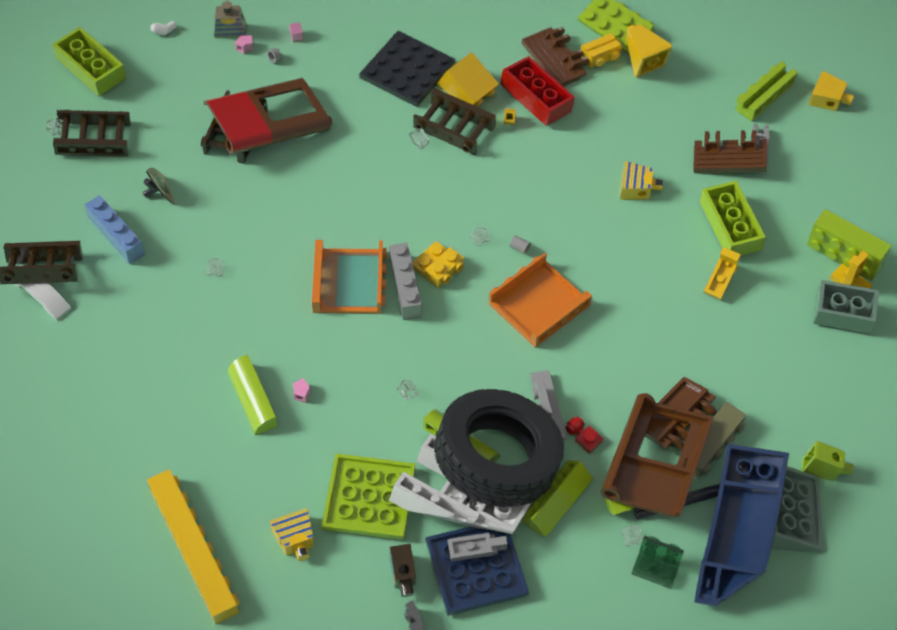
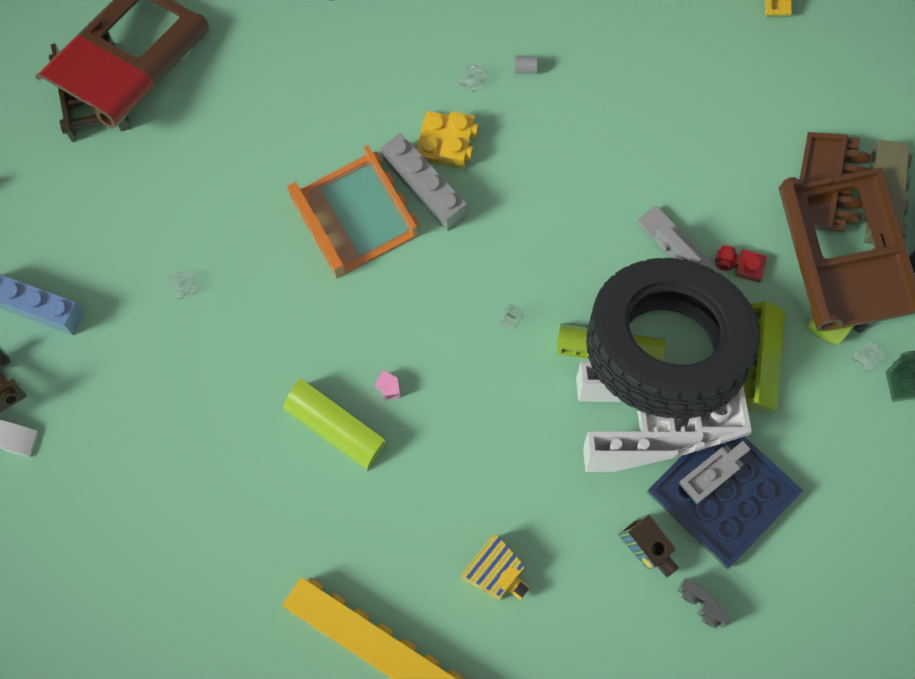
camera: 25 degrees left, 15 degrees up
(157, 183) = (42, 213): shield -> none
(361, 496) = (545, 476): lime plate -> none
(538, 301) = (590, 125): orange panel -> none

